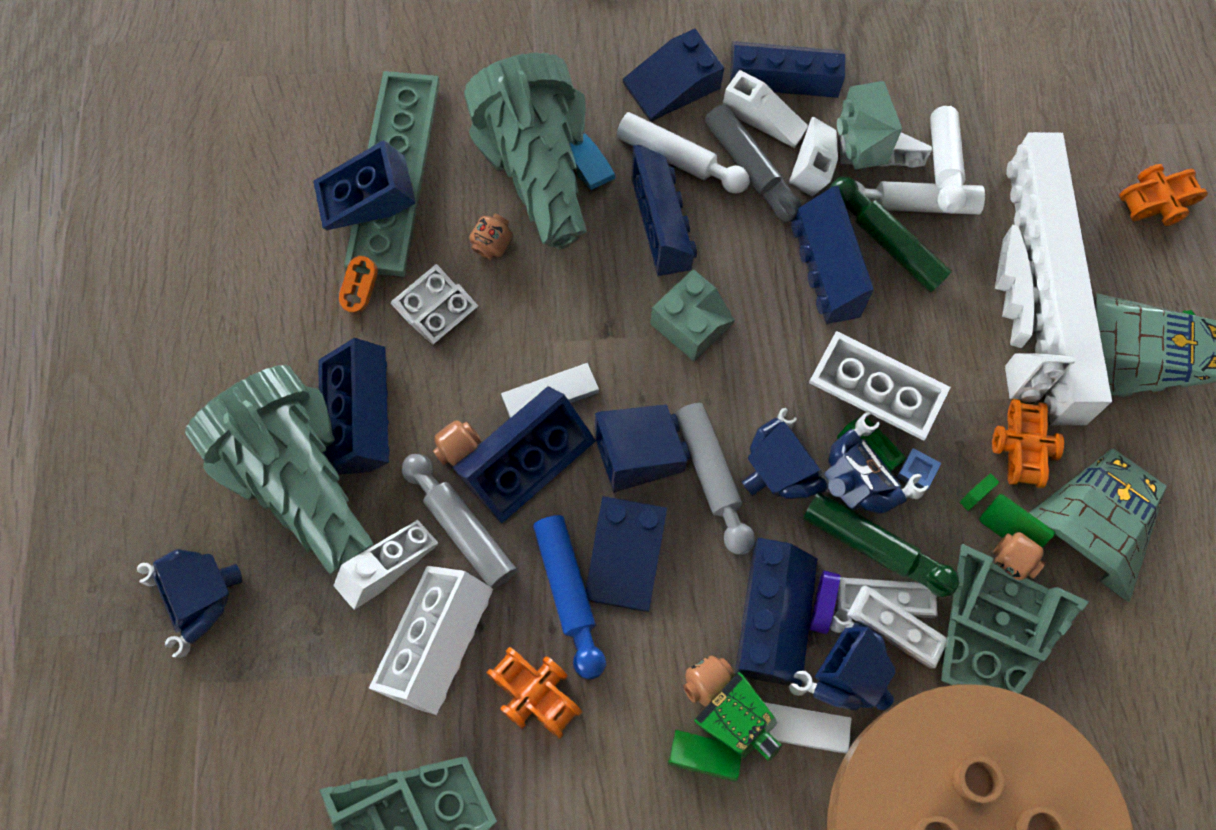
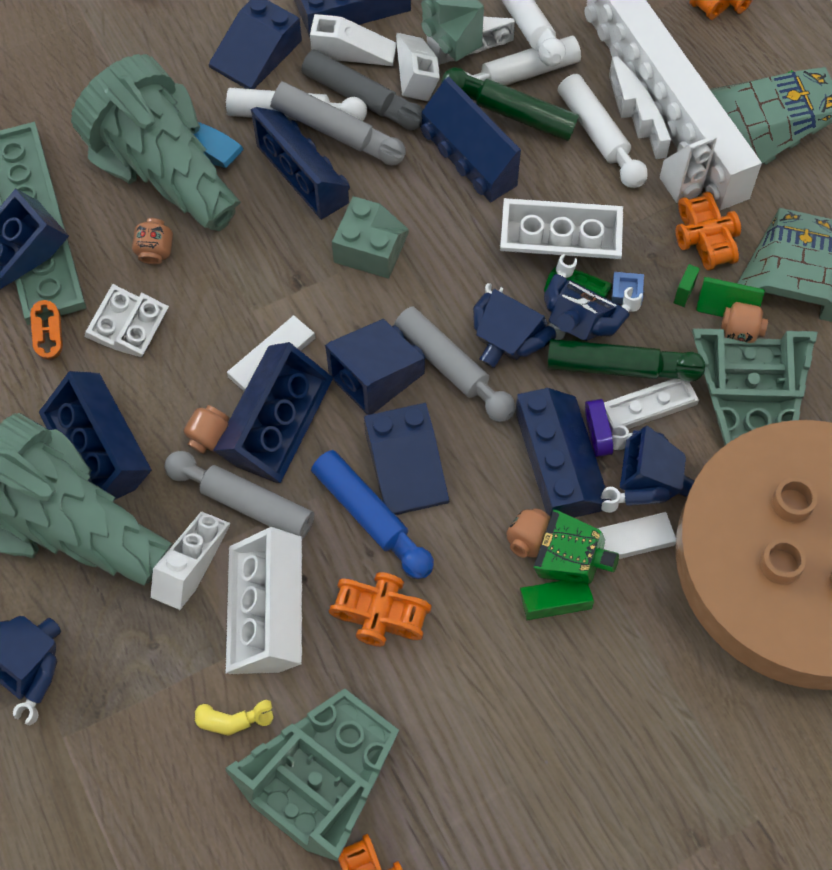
camera: 20 degrees left, 5 degrees down
(343, 738) = (227, 724): none -> light yellow arm
(712, 189) = (337, 124): none -> light grey piece
(898, 627) = (671, 420): white tile -> none
(968, 295) = (602, 129): none -> white piece

